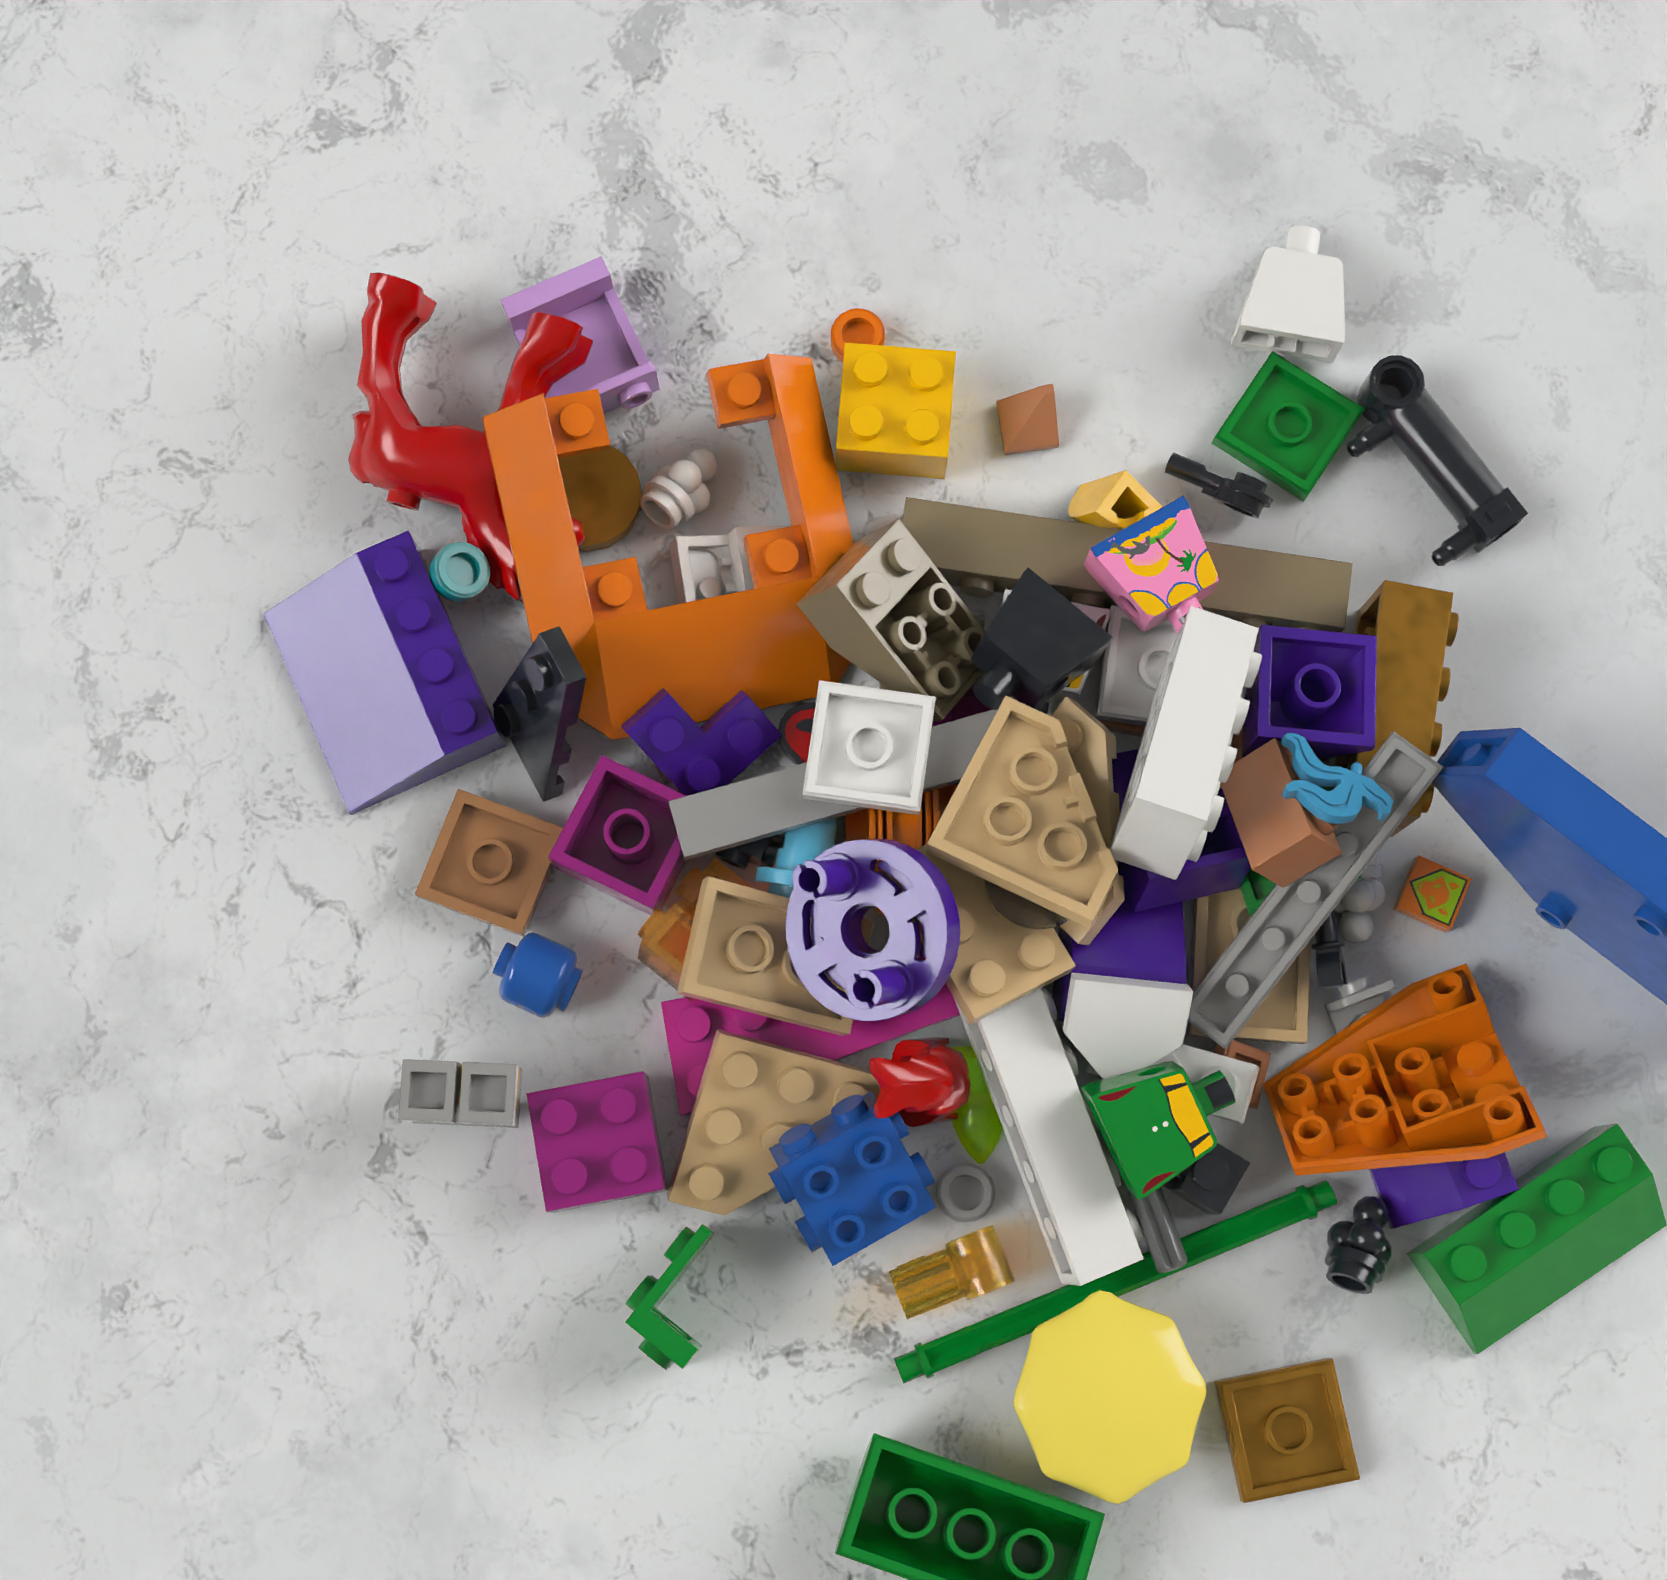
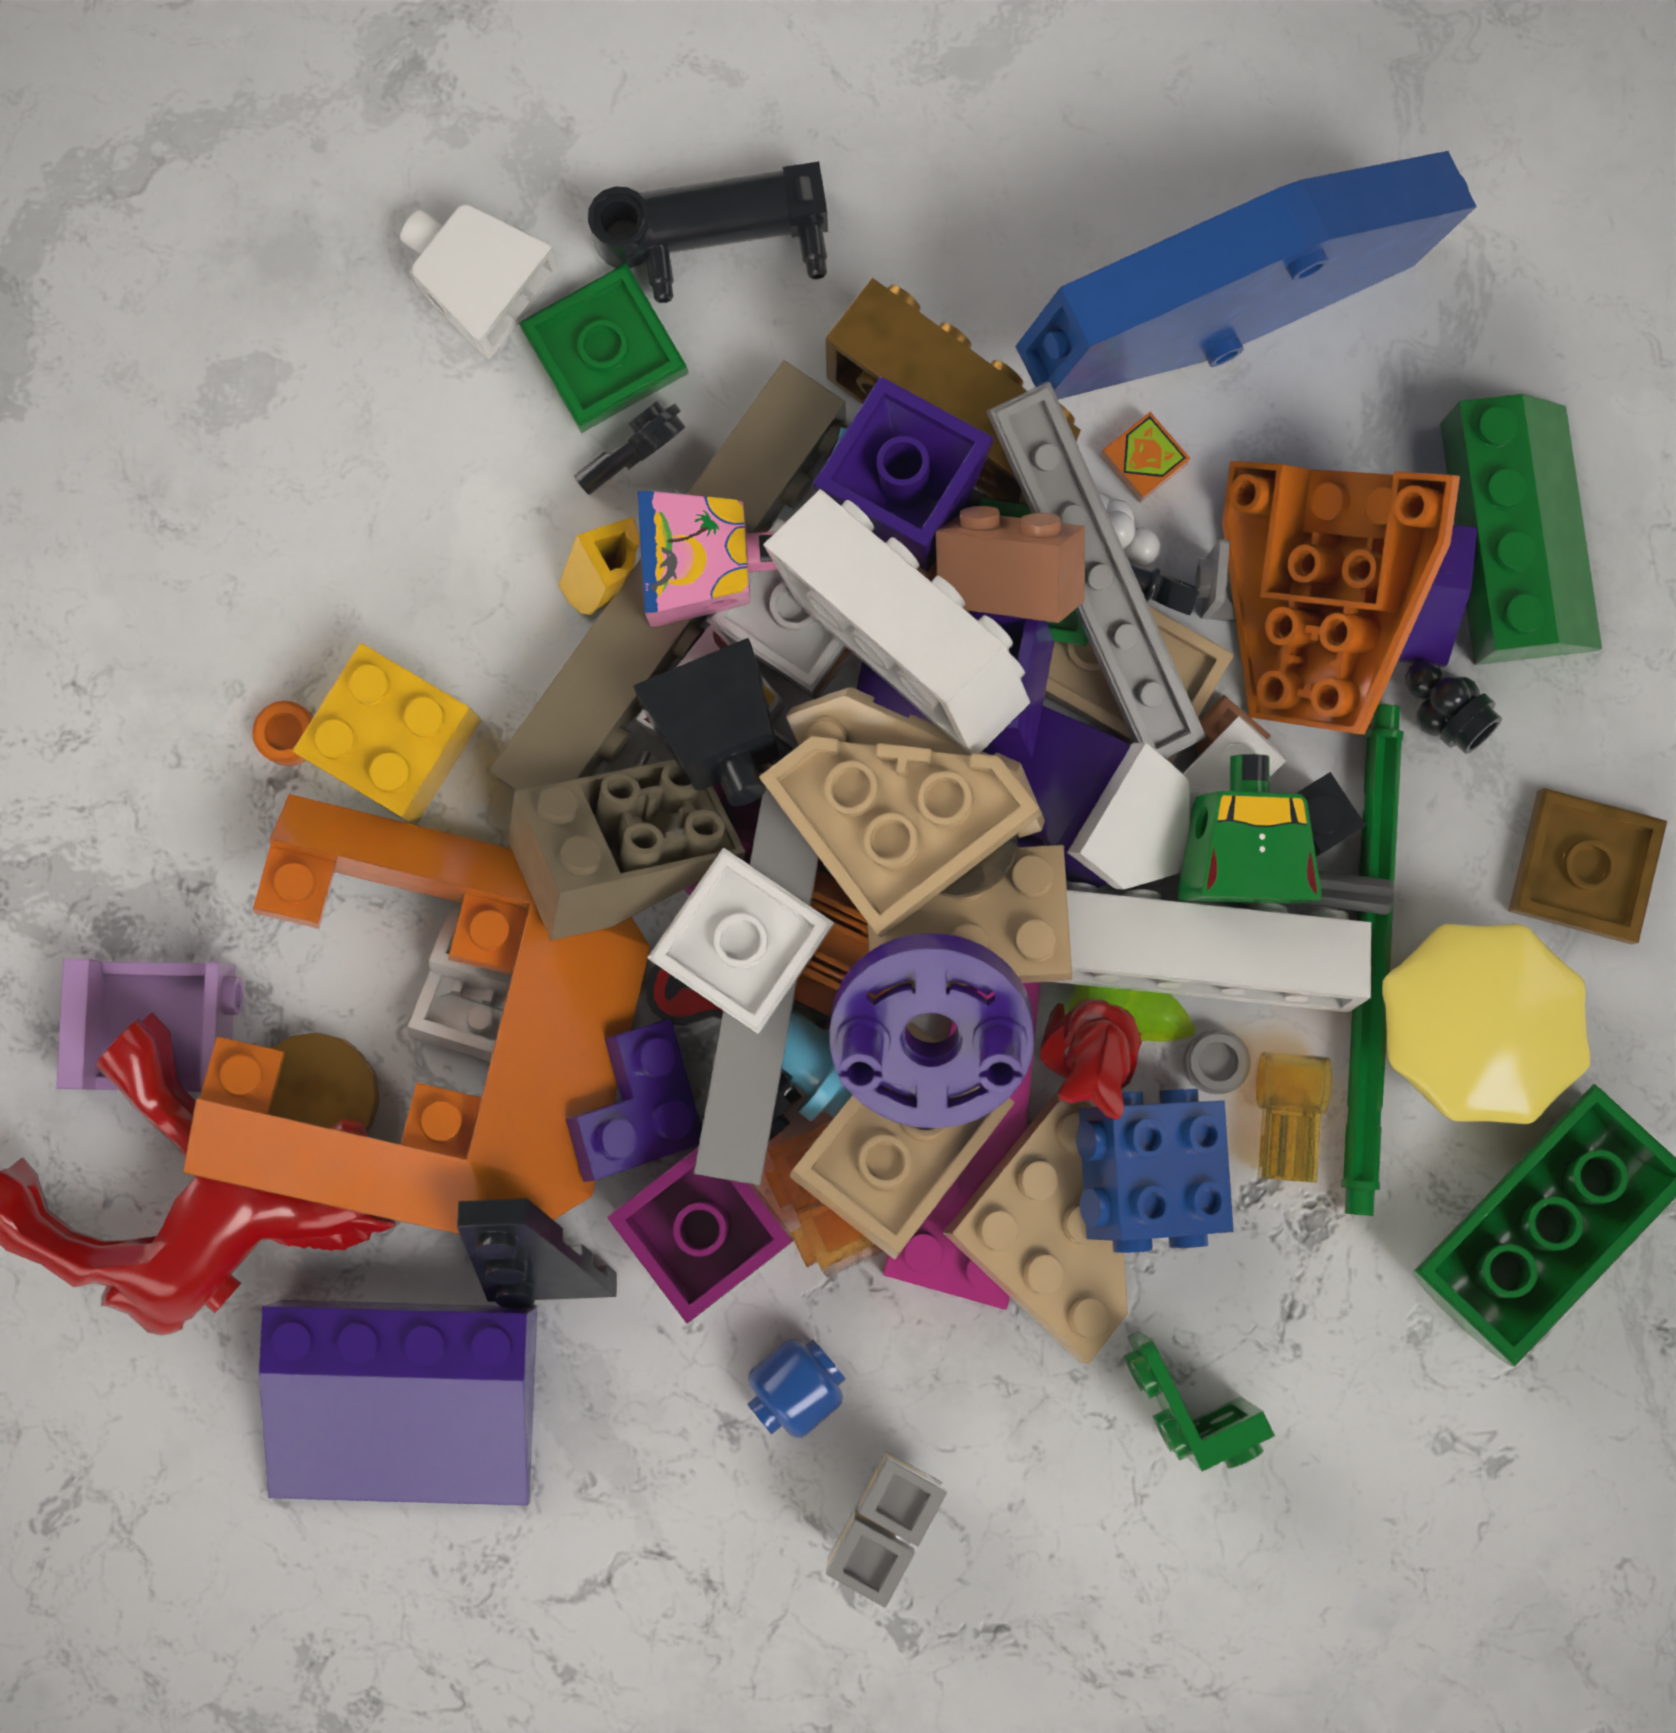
camera: 60 degrees left, 5 degrees up
(459, 571) = (334, 1272): teal tile -> none
(489, 863) = (655, 1382): medium nougat plate -> none
(597, 1142) = (997, 1409): magenta brick -> none
(678, 489) = (357, 999): white piece -> none
(1028, 420) = (465, 604): nougat slope -> none
(1345, 800) = (1039, 498): dark azure piece -> none

